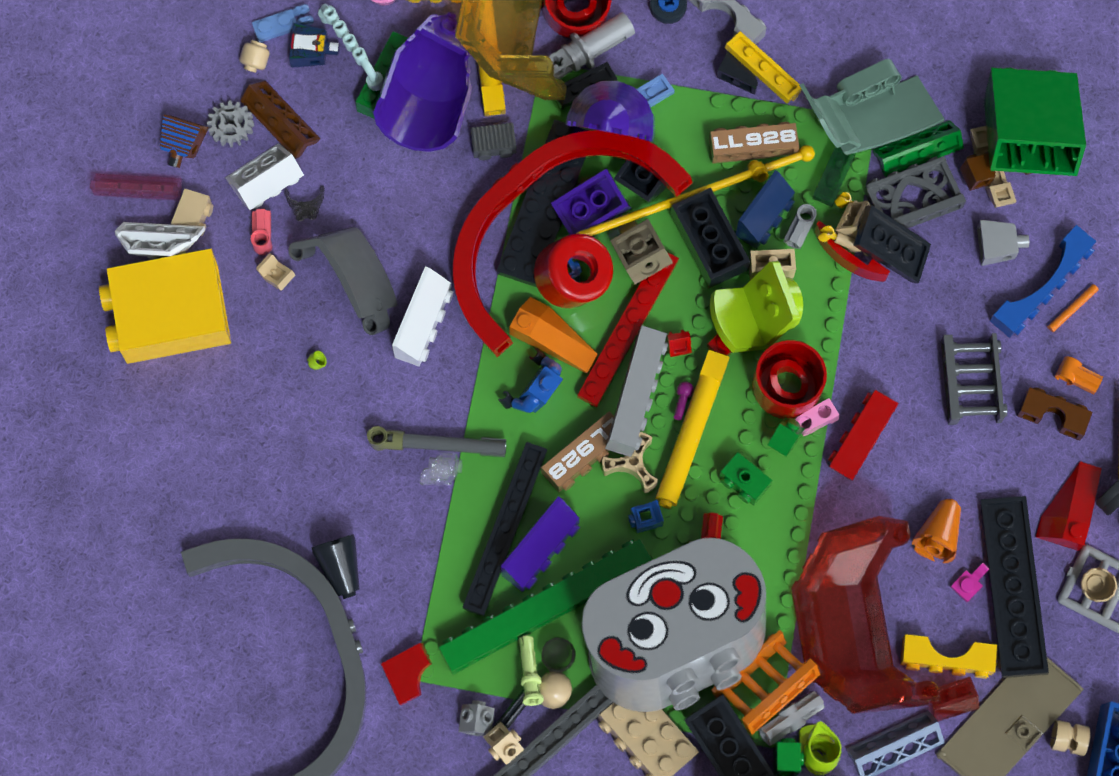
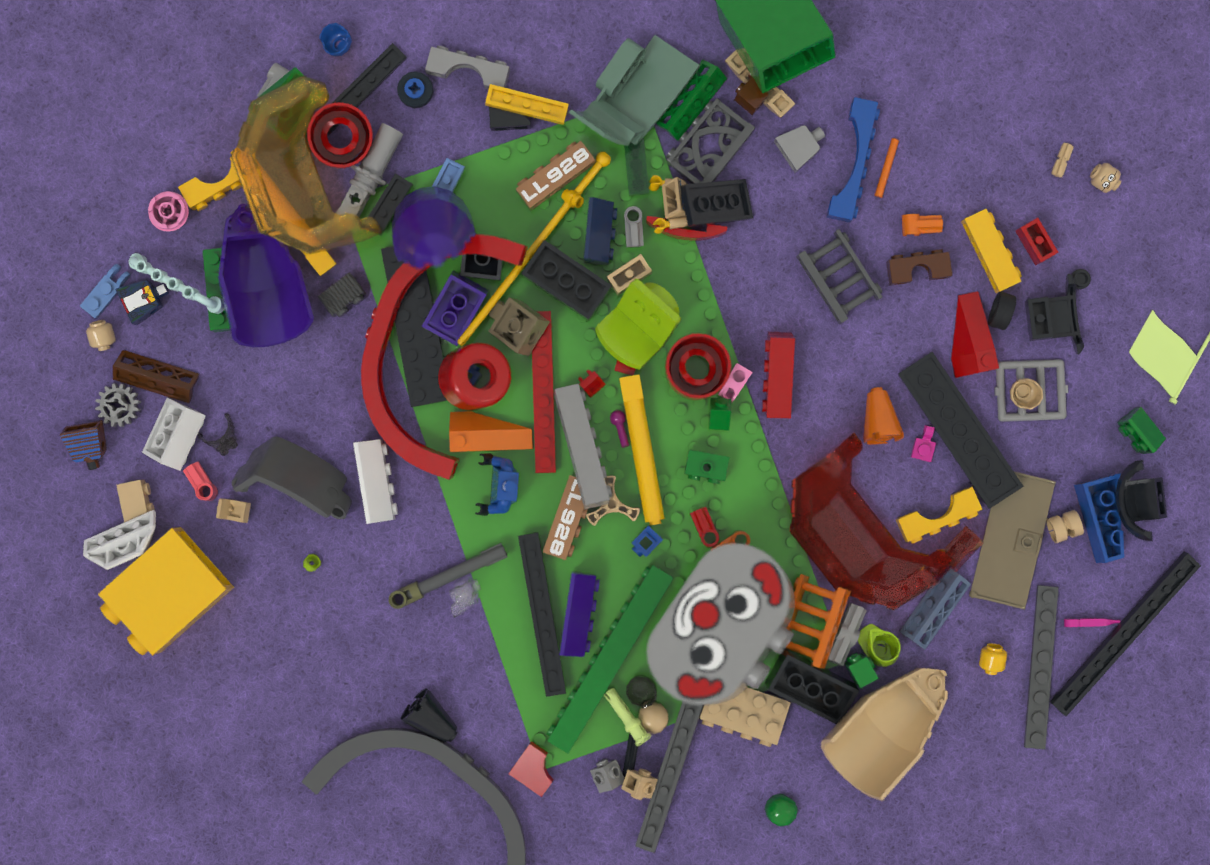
camera: 25 degrees left, 15 degrees up
(136, 187) = (75, 502): clear pink fence -> none

